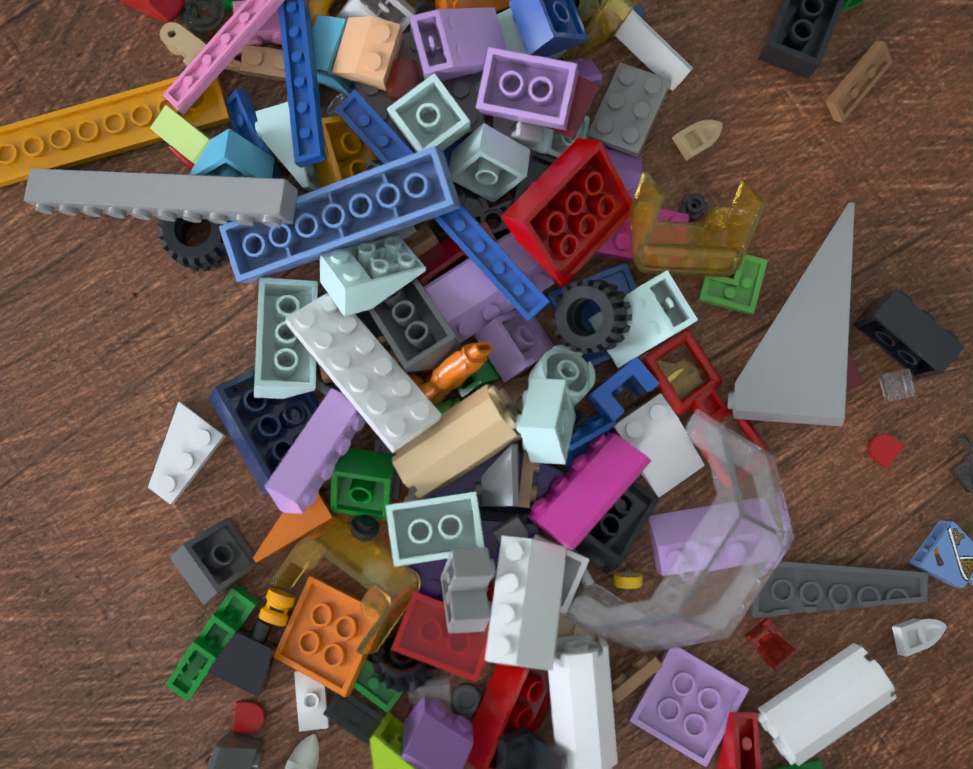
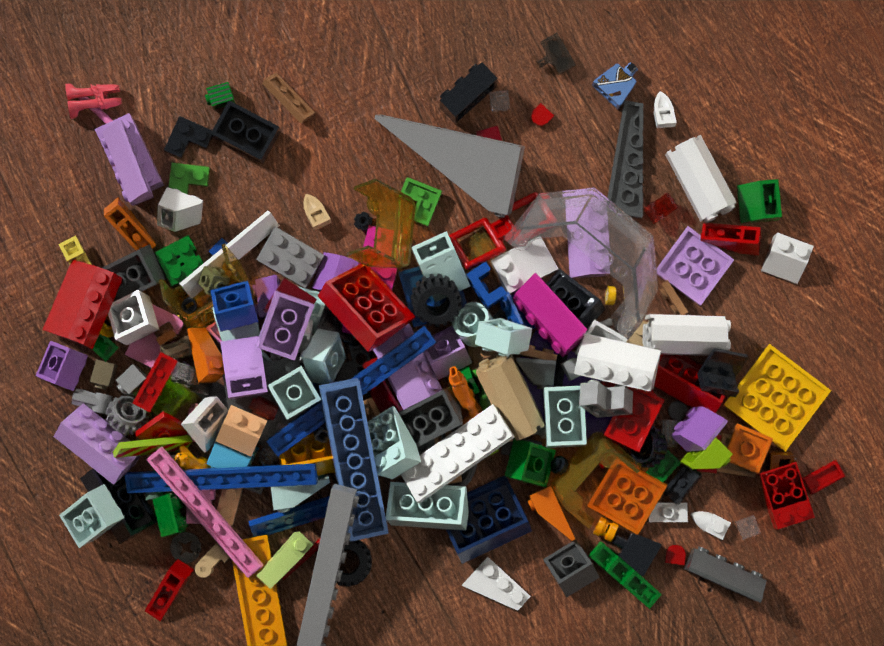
camera: 80 degrees left, 0 degrees up
(233, 157) = (307, 528): medium azure slope -> none
(315, 453) = (509, 488): lavender slope -> none

